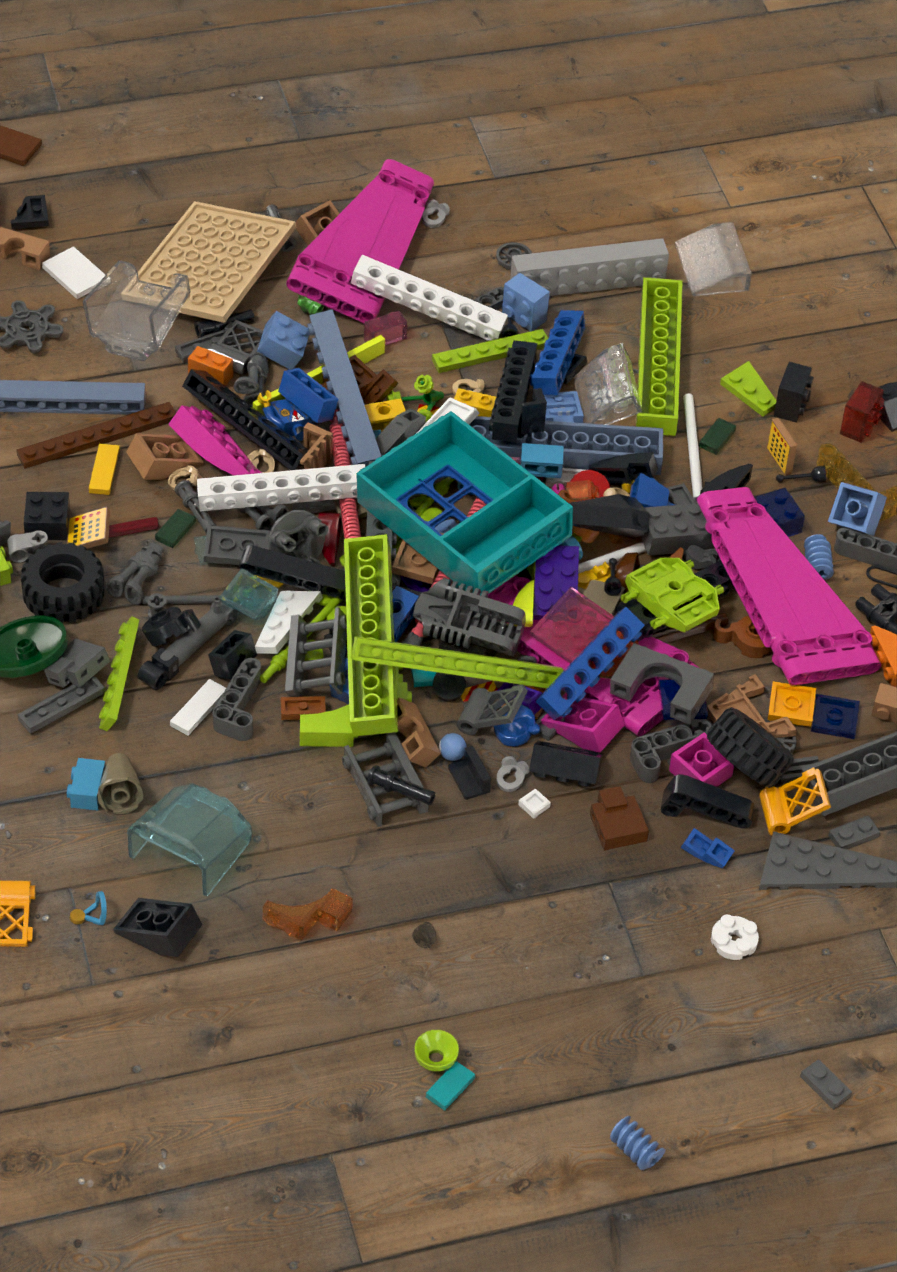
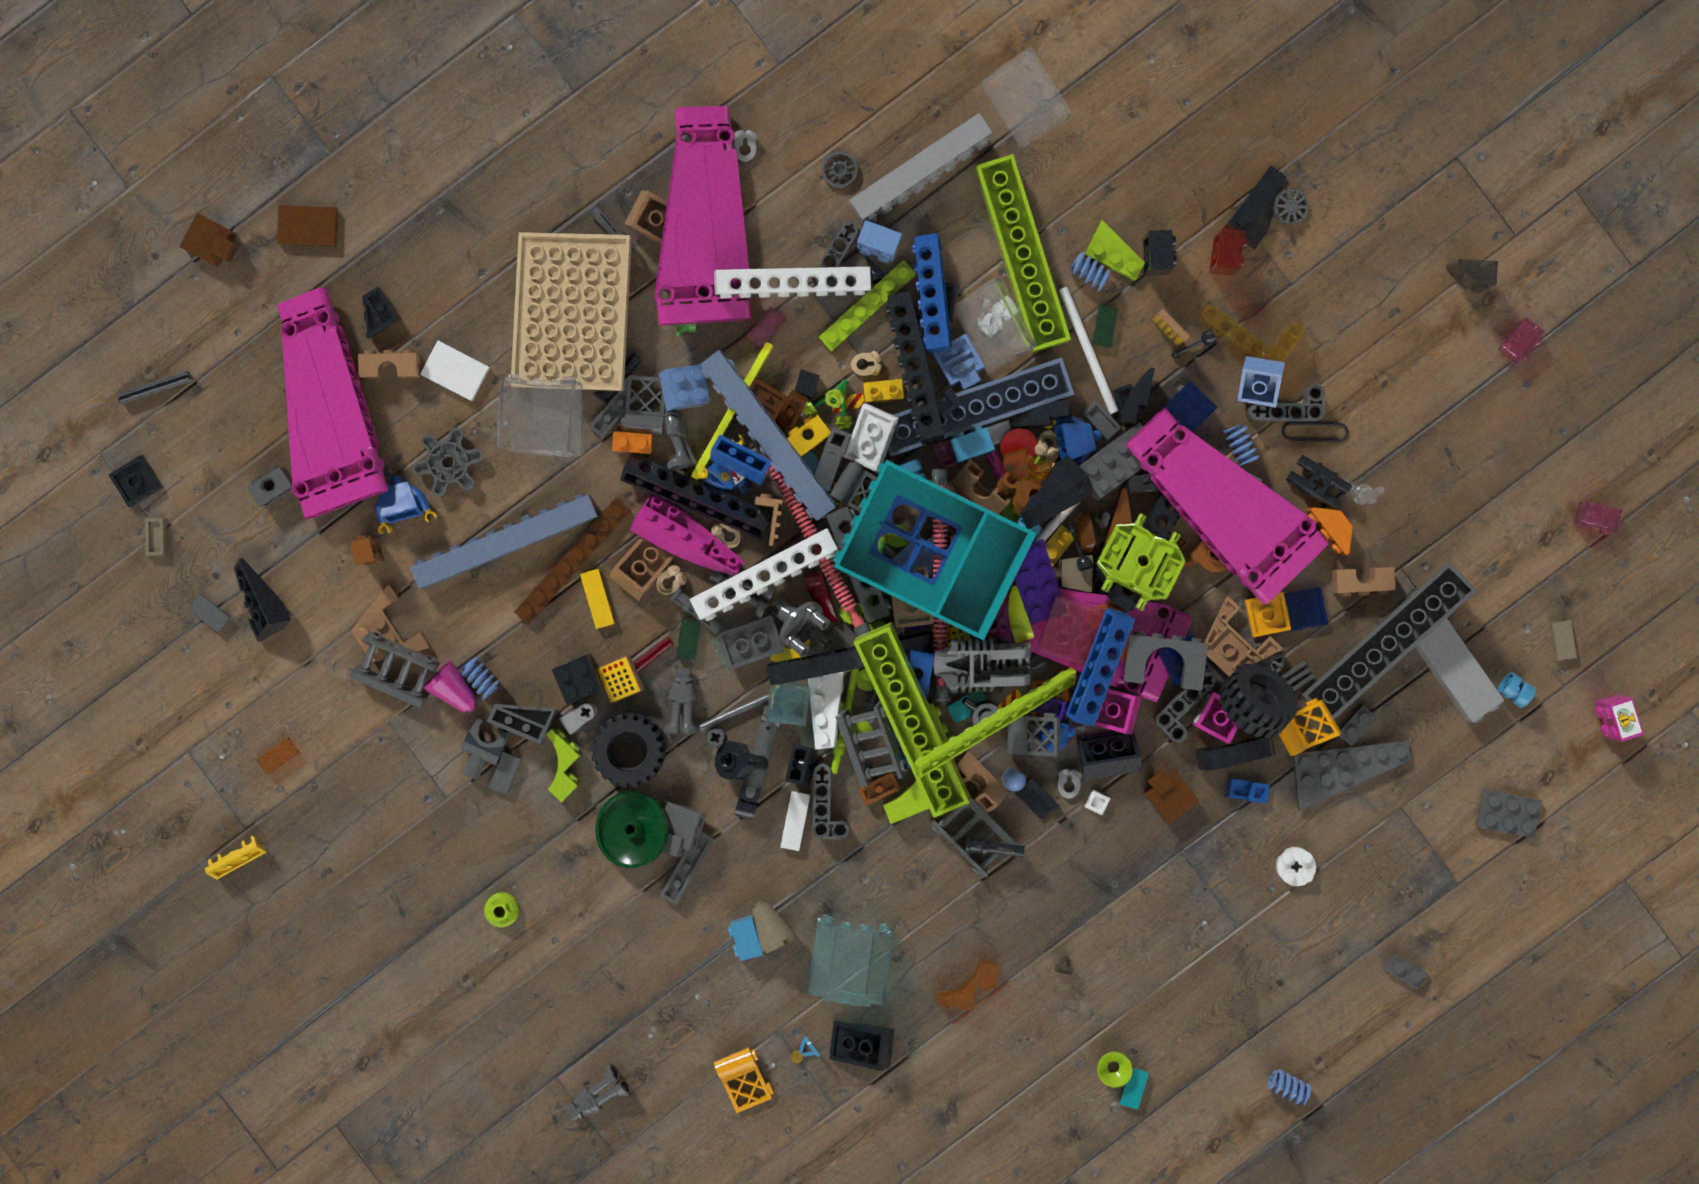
camera: 15 degrees left, 40 degrees up
(119, 673) = (716, 812): lime plate -> none
(406, 378) = (807, 384): none -> black brick
(720, 389) = (1090, 270): none -> medium blue piece

